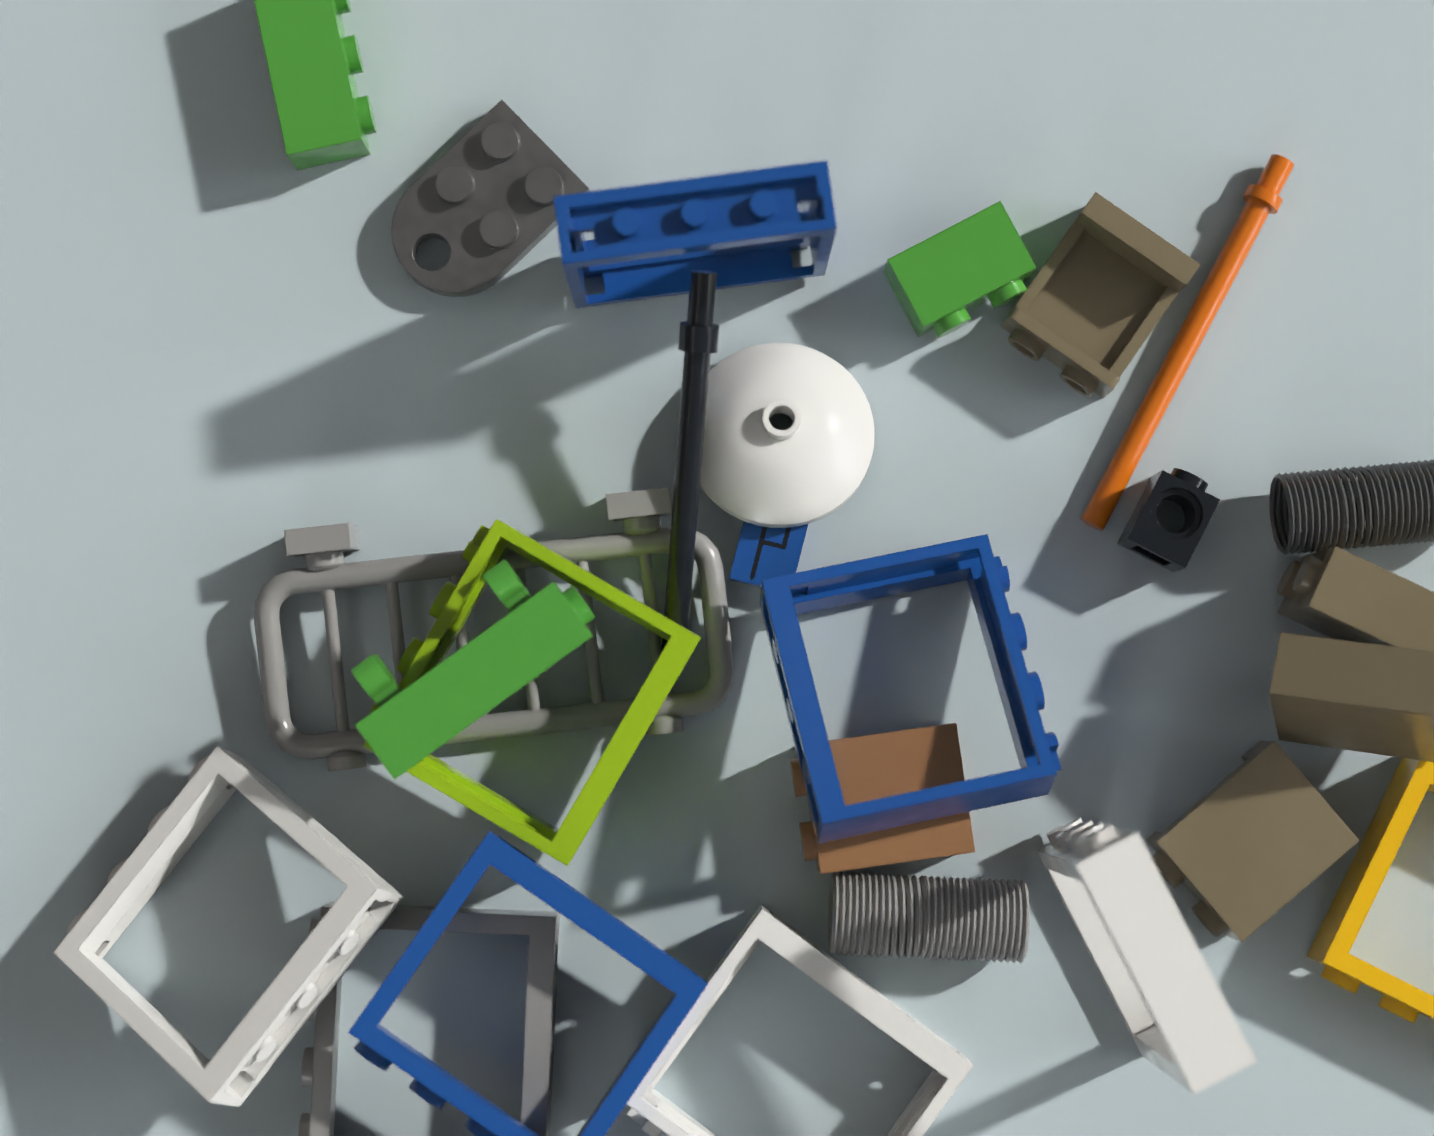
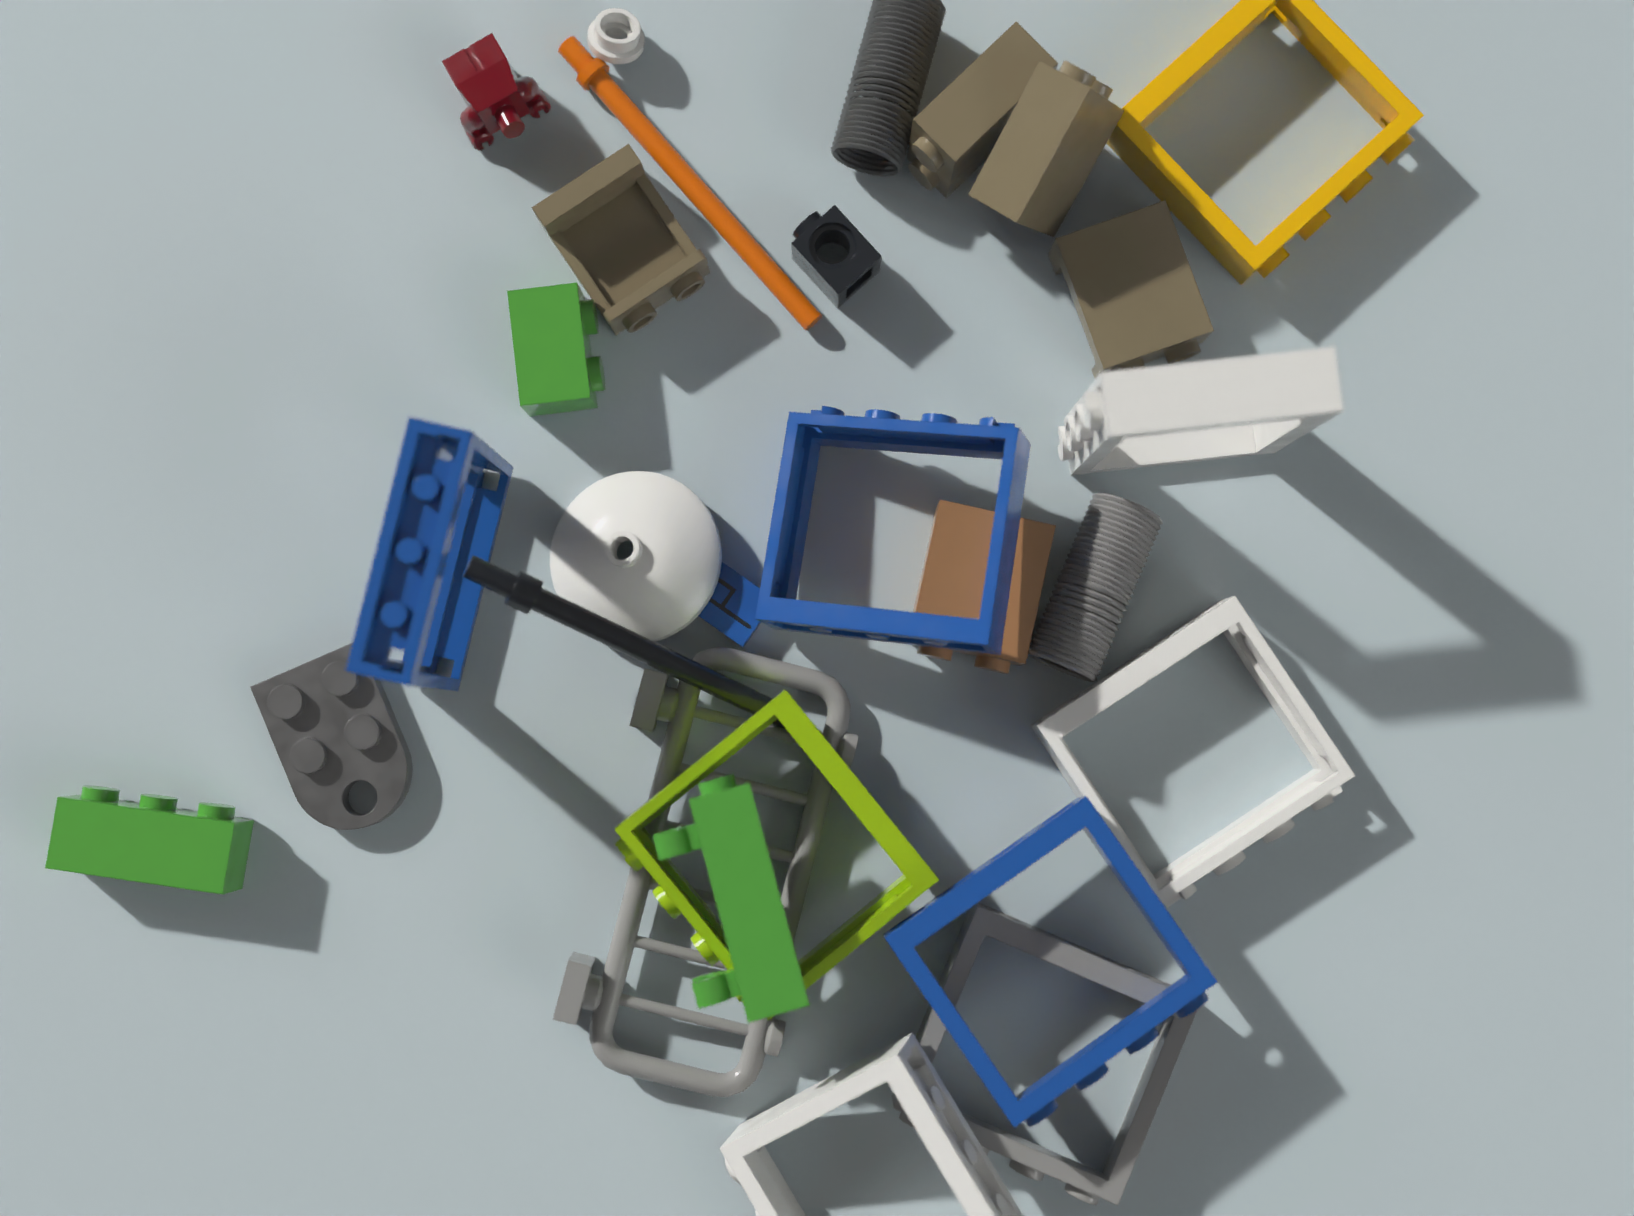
camera: 65 degrees left, 0 degrees up
(1200, 106) = (493, 92): none -> dark red piece
(1322, 206) = (616, 36): none -> white plate

